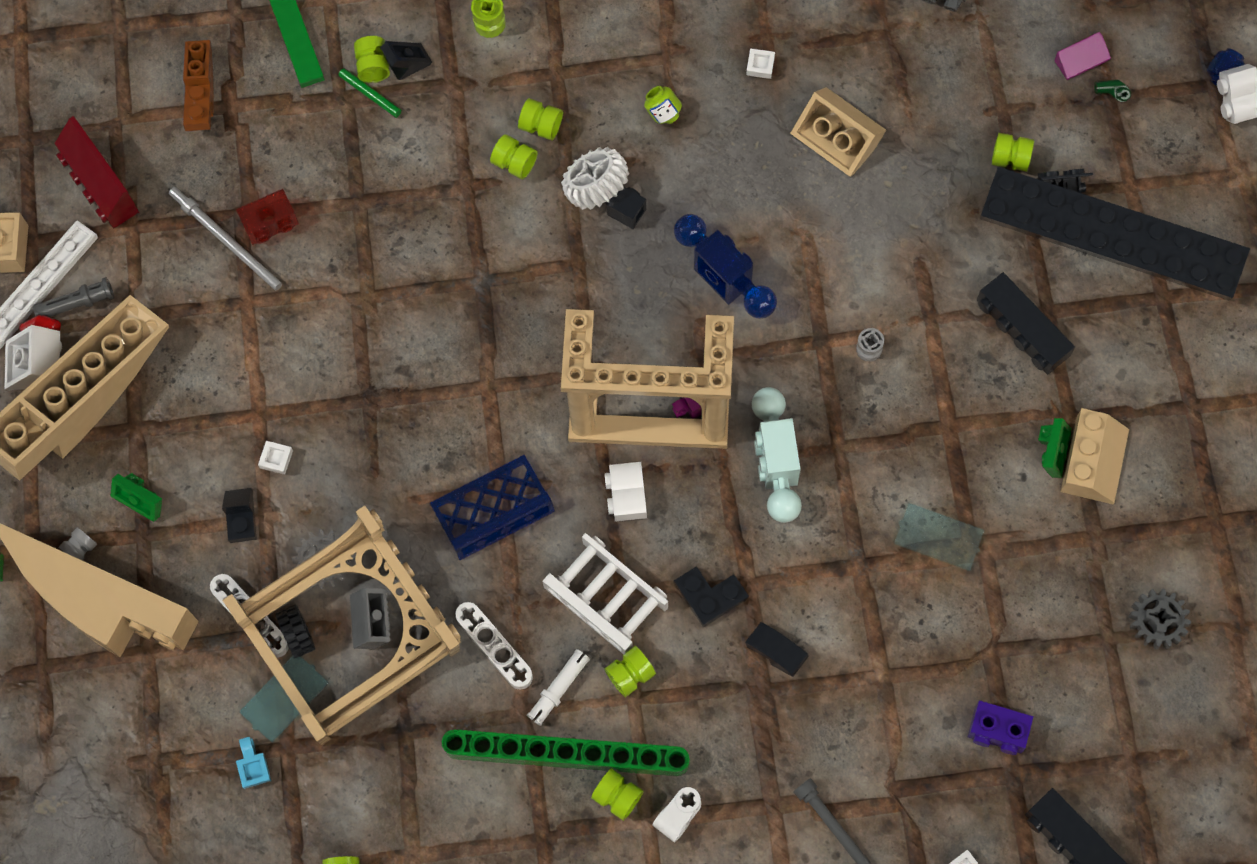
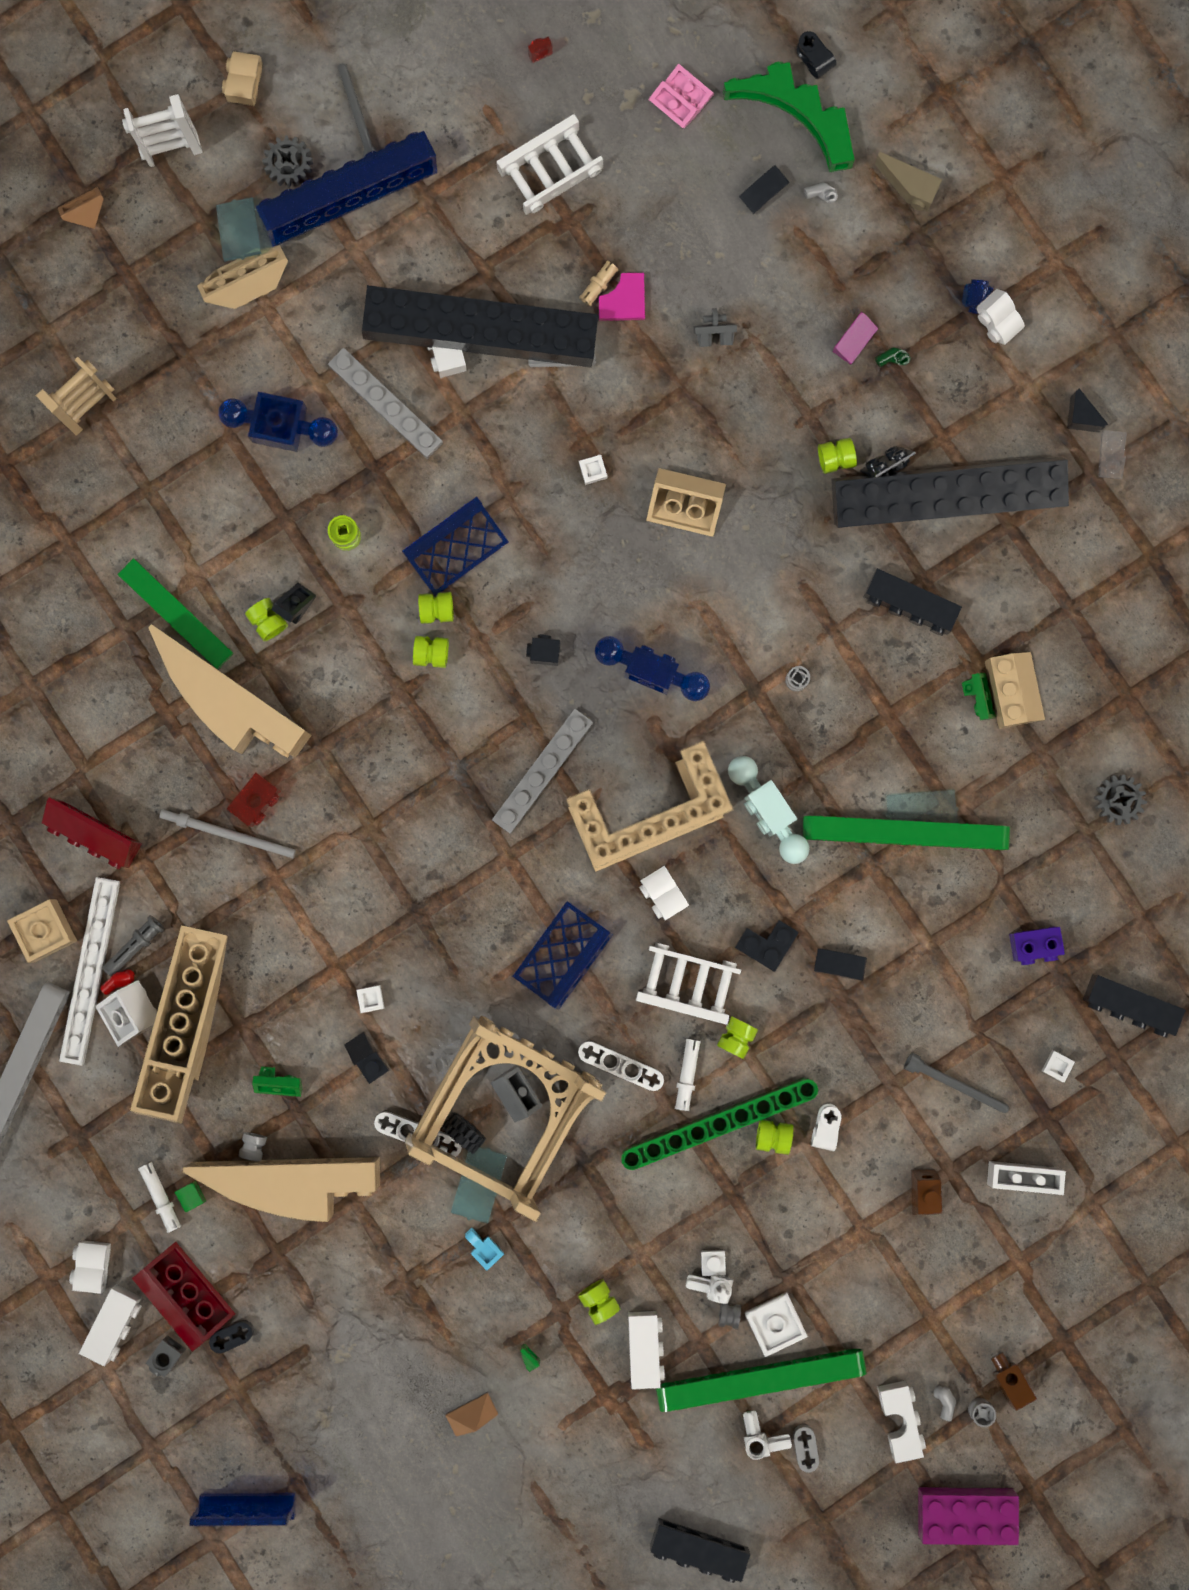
camera: 30 degrees left, 15 degrees up
(198, 85) = (132, 712): dark orange slope -> none
(290, 116) = (225, 705): none -> tan slope
(369, 92) = (280, 648): green bar -> none
(552, 324) = (542, 771): none -> light grey plate
(589, 52) = (443, 529): none -> clear blue fence
(595, 178) = (509, 641): white gear -> none
(662, 105) = (531, 547): lime head -> none
(686, 405) = (676, 797): magenta tile -> none
(913, 548) = (906, 832): none -> green beam

